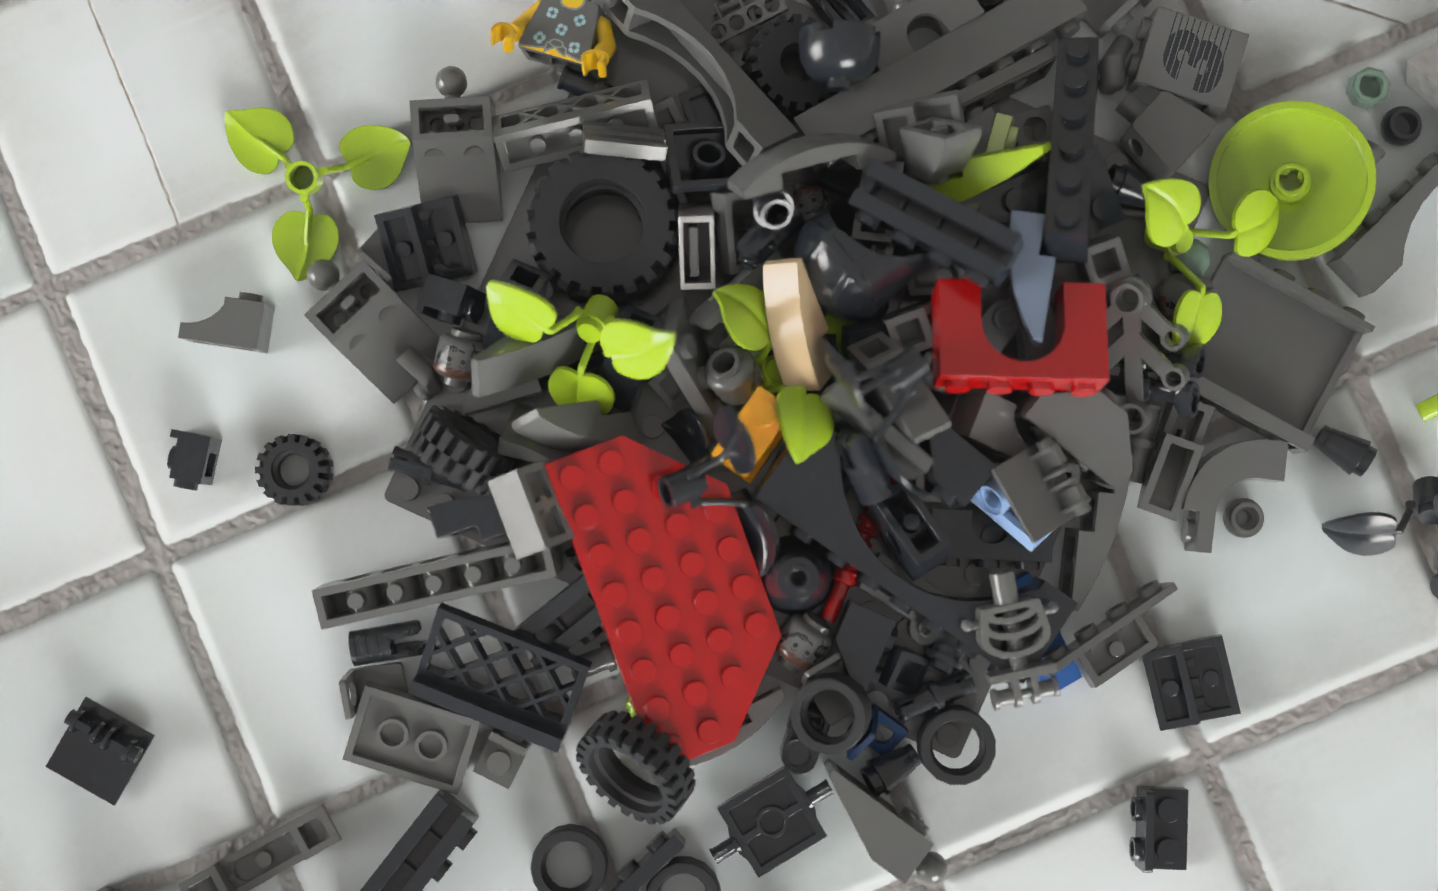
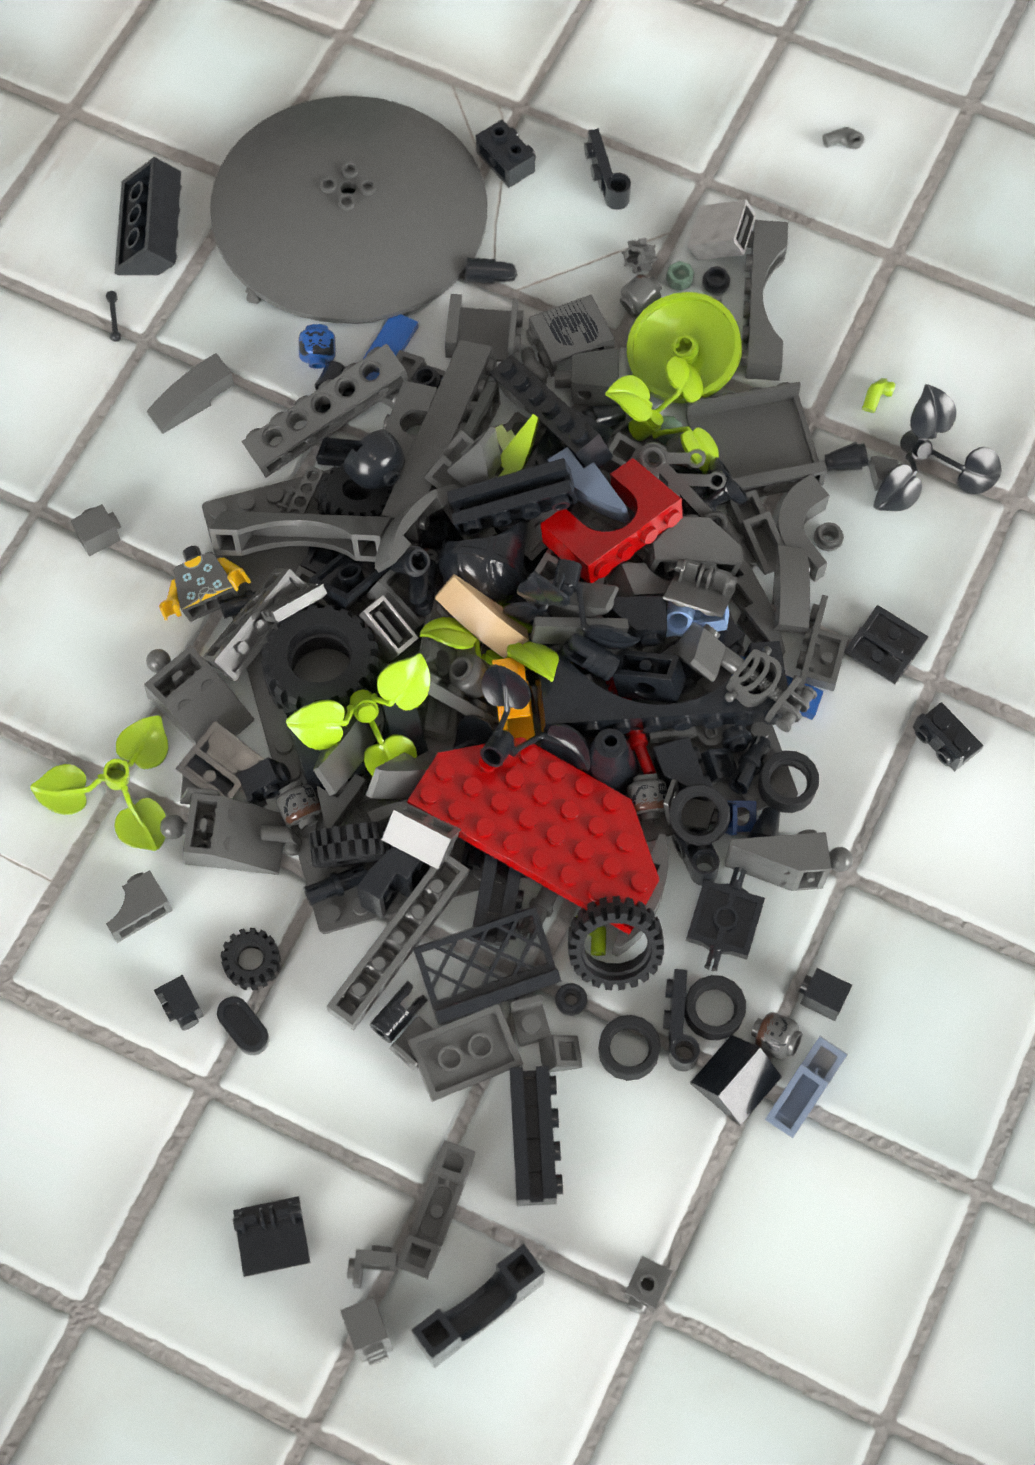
camera: 40 degrees left, 20 degrees down
(169, 856) = (376, 1259): none -> dark grey bracket
(237, 527) = (243, 1025): none -> black tile
(504, 811) = (560, 1053): none -> dark grey slope
(558, 781) = (571, 990): none -> black plate
(981, 555) = (701, 650): none -> dark grey slope
(1145, 553) = (791, 590): none -> dark grey slope
(1304, 76) = (640, 293): none -> dark grey head
(1345, 28) = (639, 255): none -> dark grey gear
(1368, 495) = (879, 469): none -> dark grey slope

